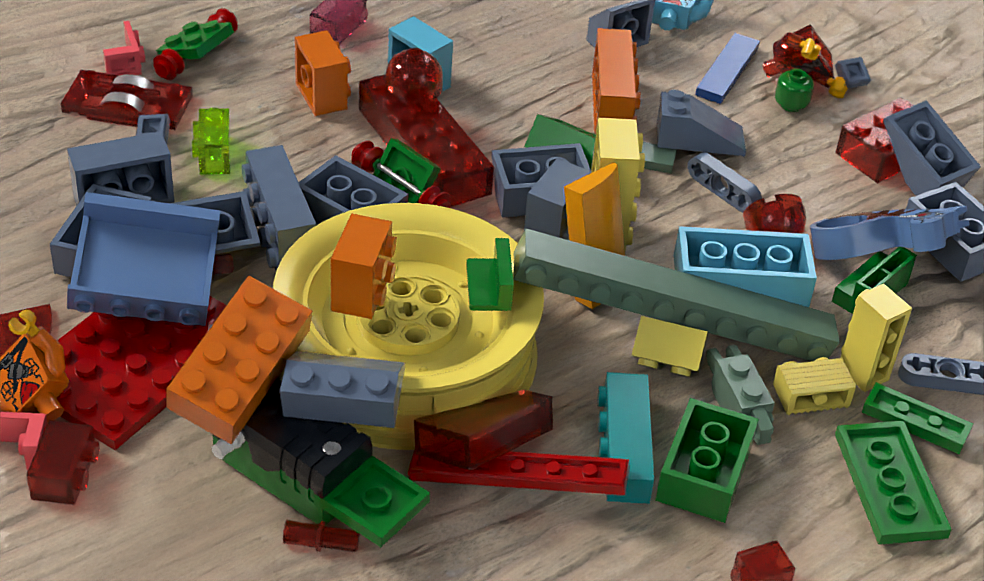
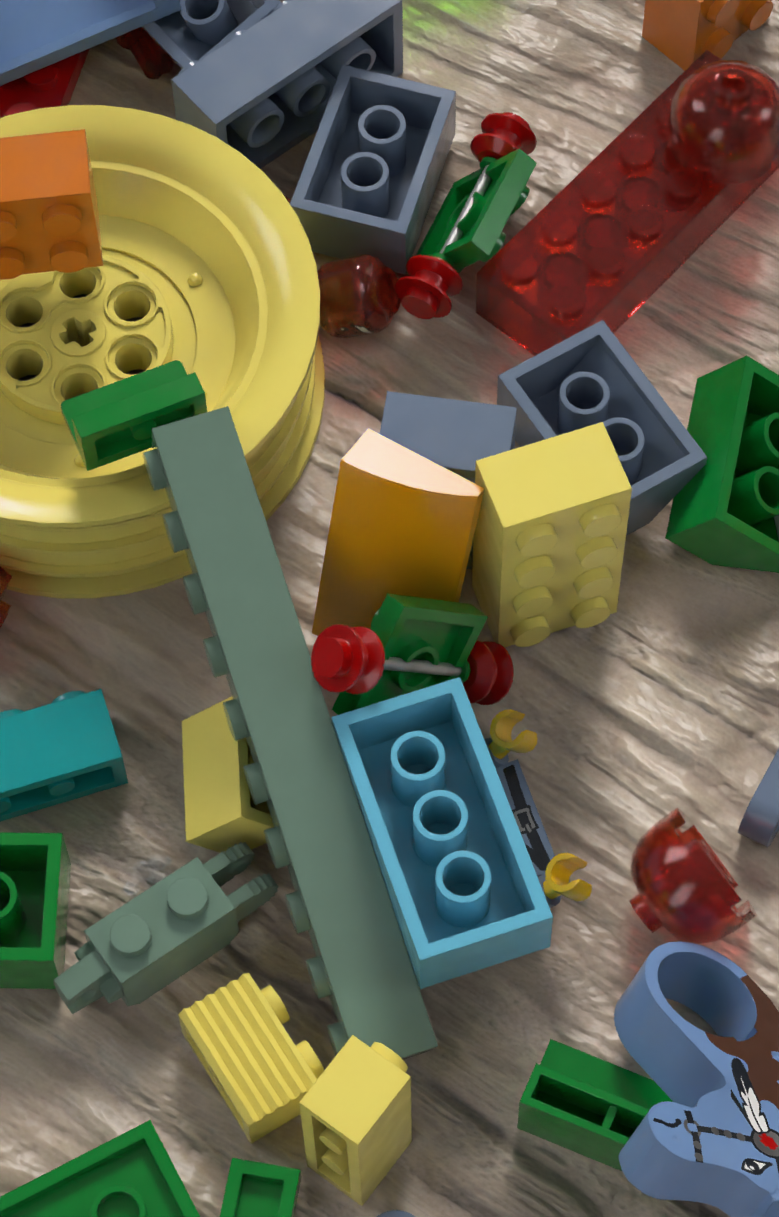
camera: 75 degrees right, 20 degrees up
(655, 249) = (408, 649): none -> plate

